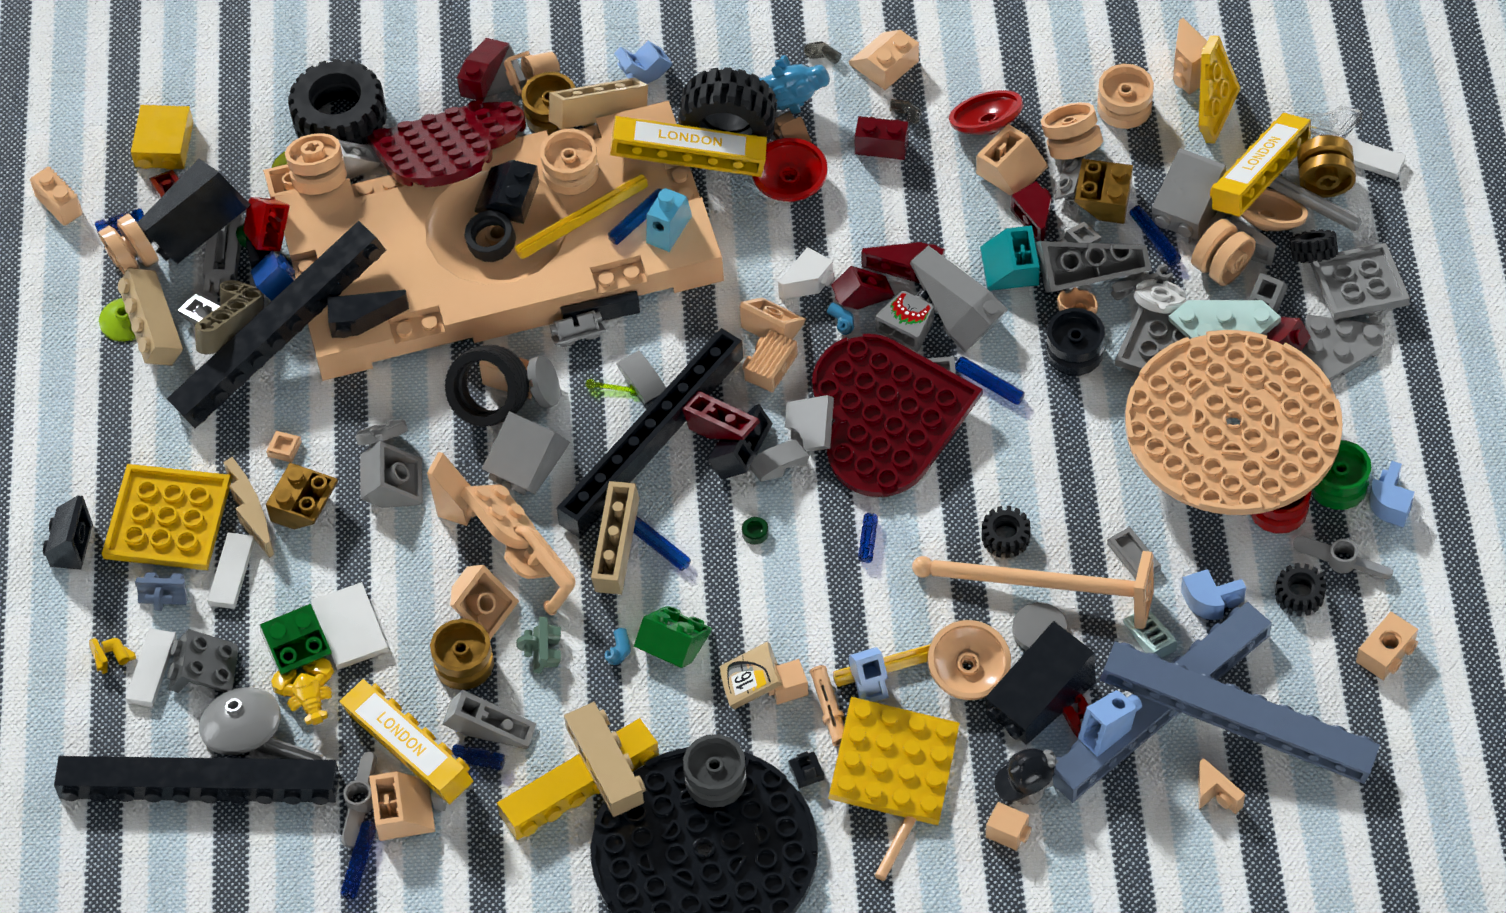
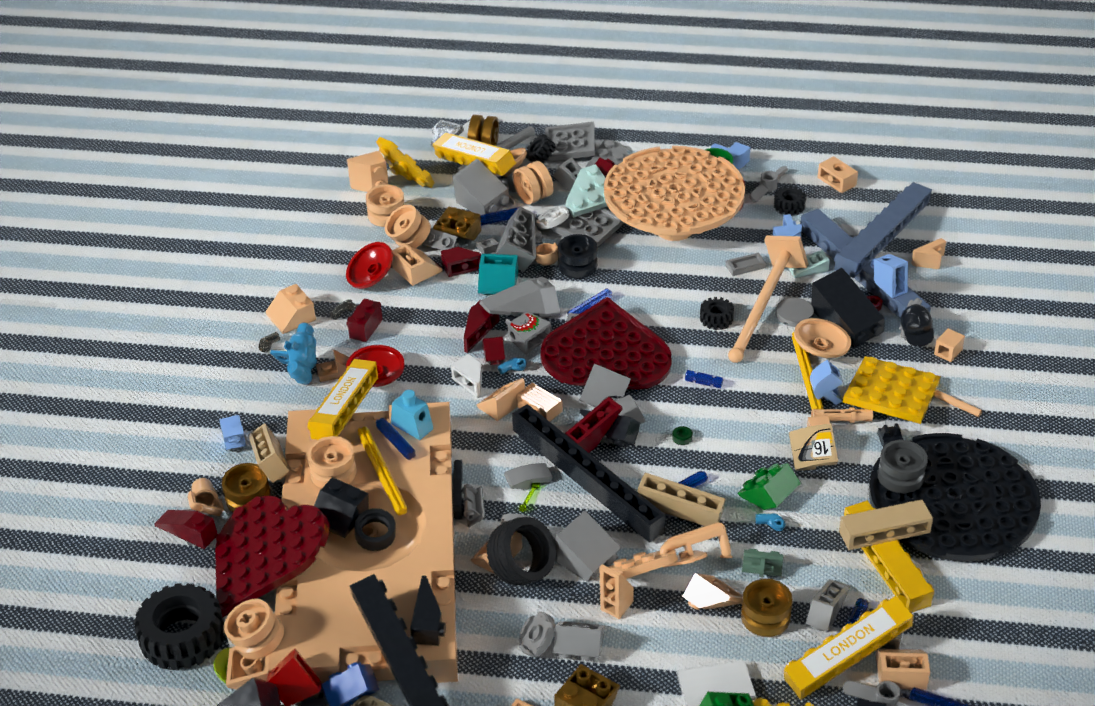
camera: 80 degrees left, 15 degrees down
(729, 103) = (316, 372): black tyre -> none

